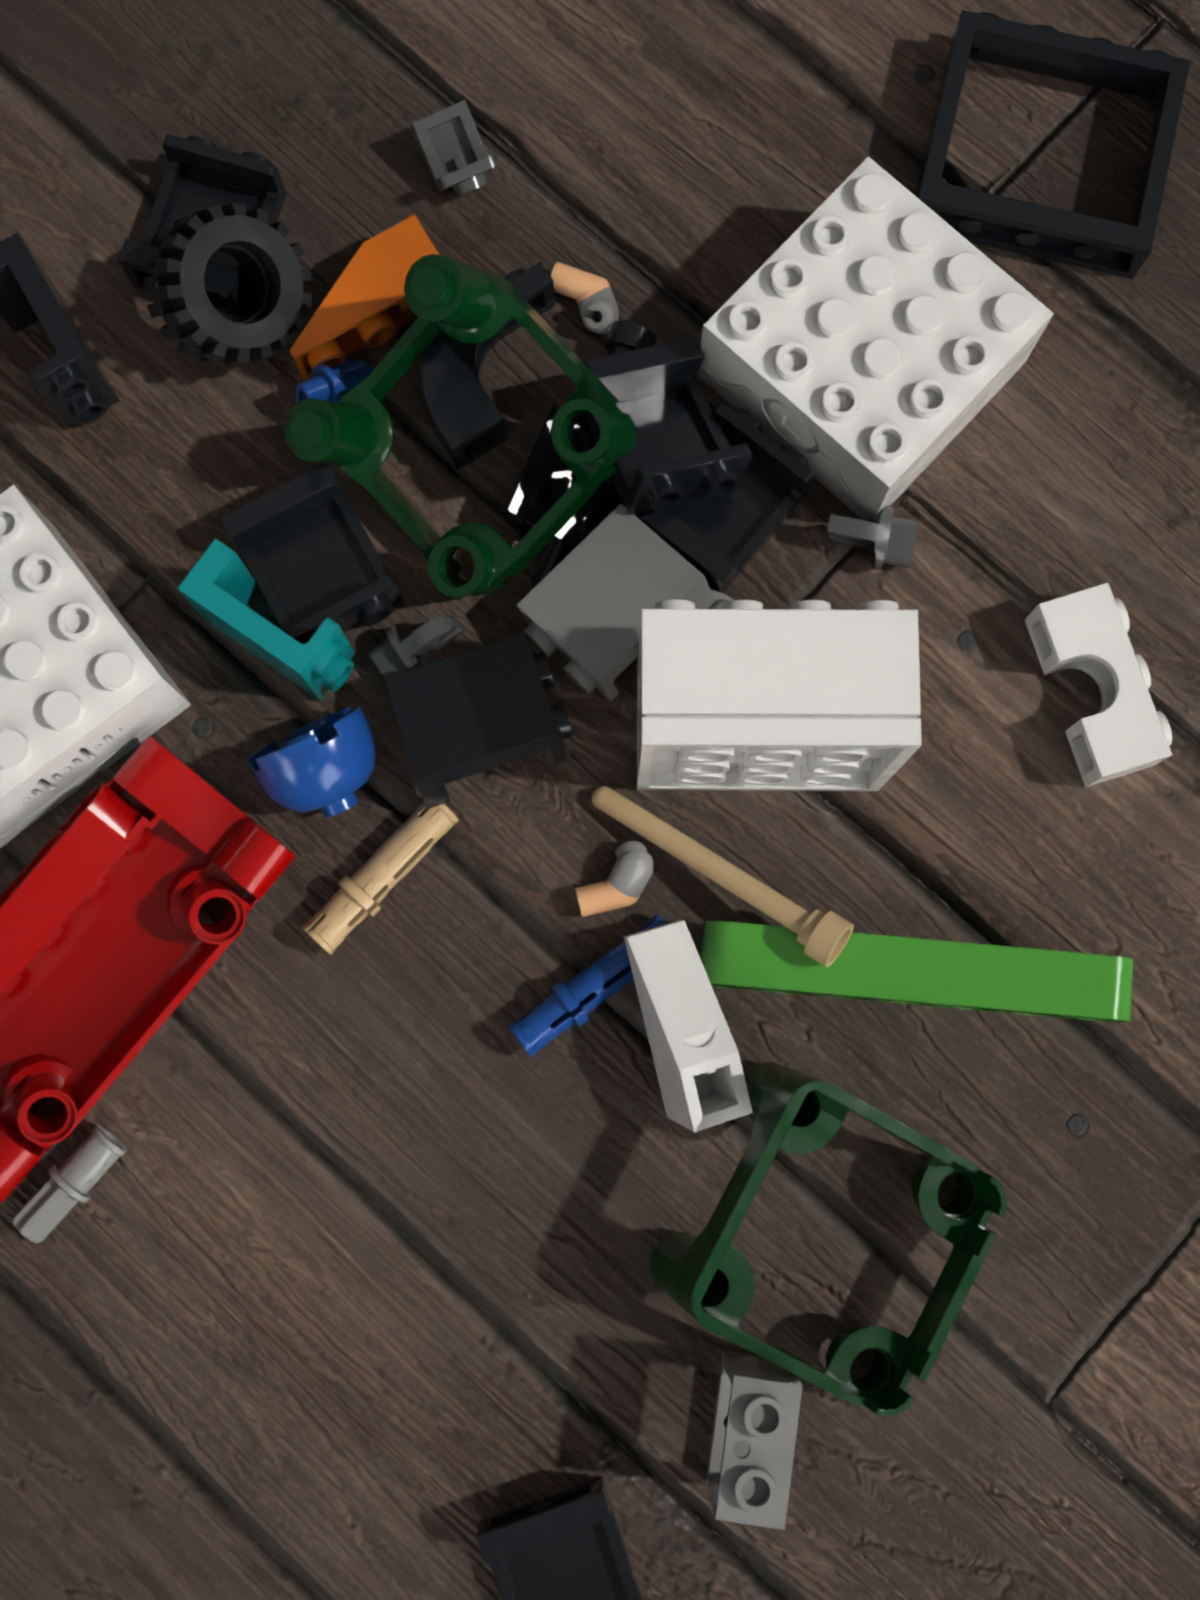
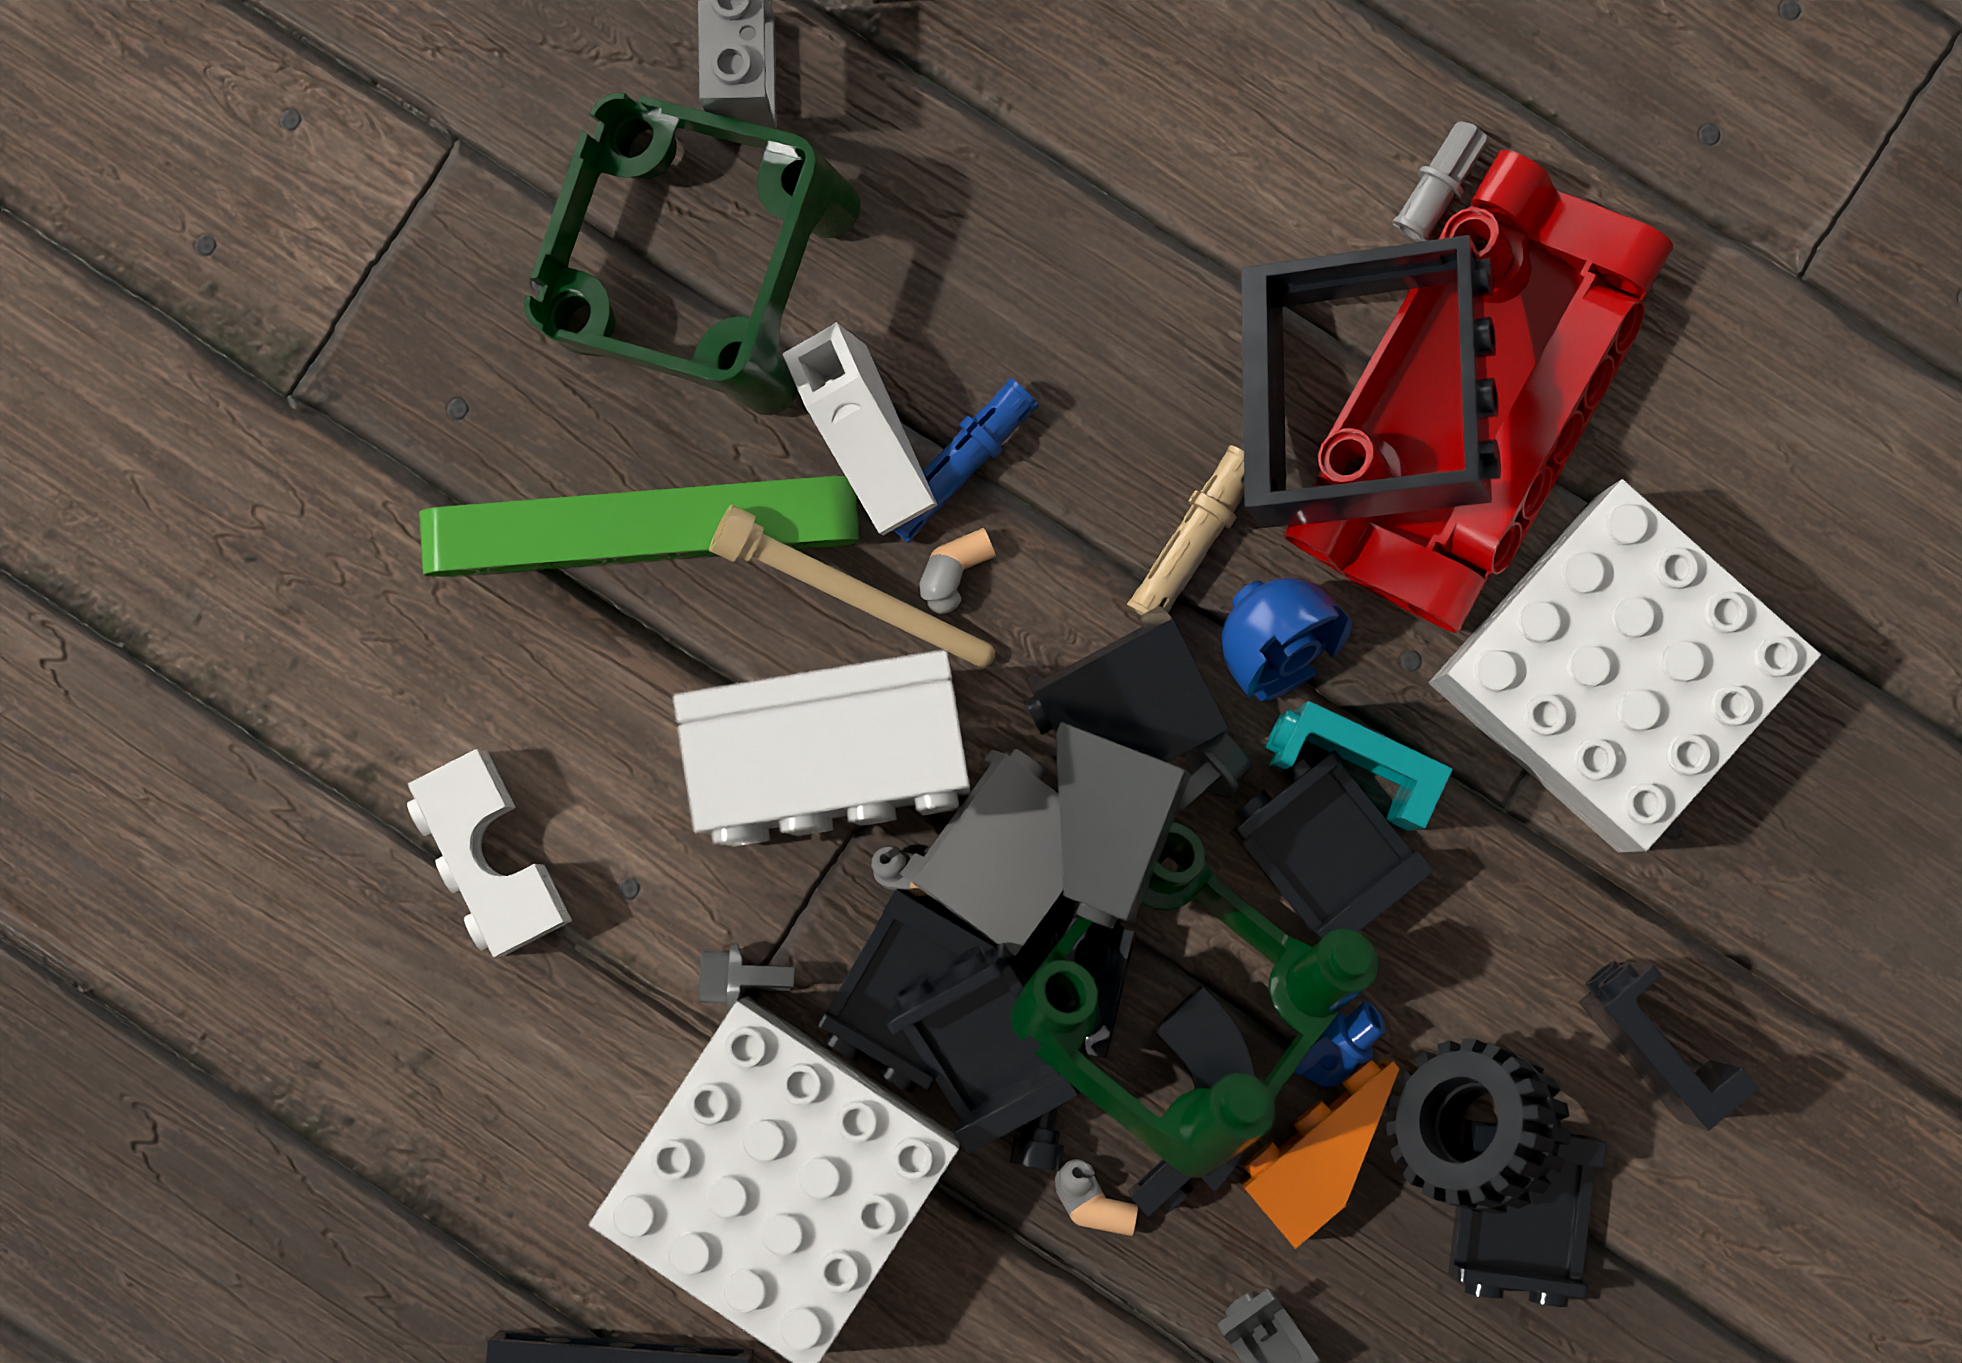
camera: 175 degrees right, 5 degrees up
(133, 1093) = (1348, 275): none -> black window
(507, 594) = (1112, 822): none -> dark grey slope

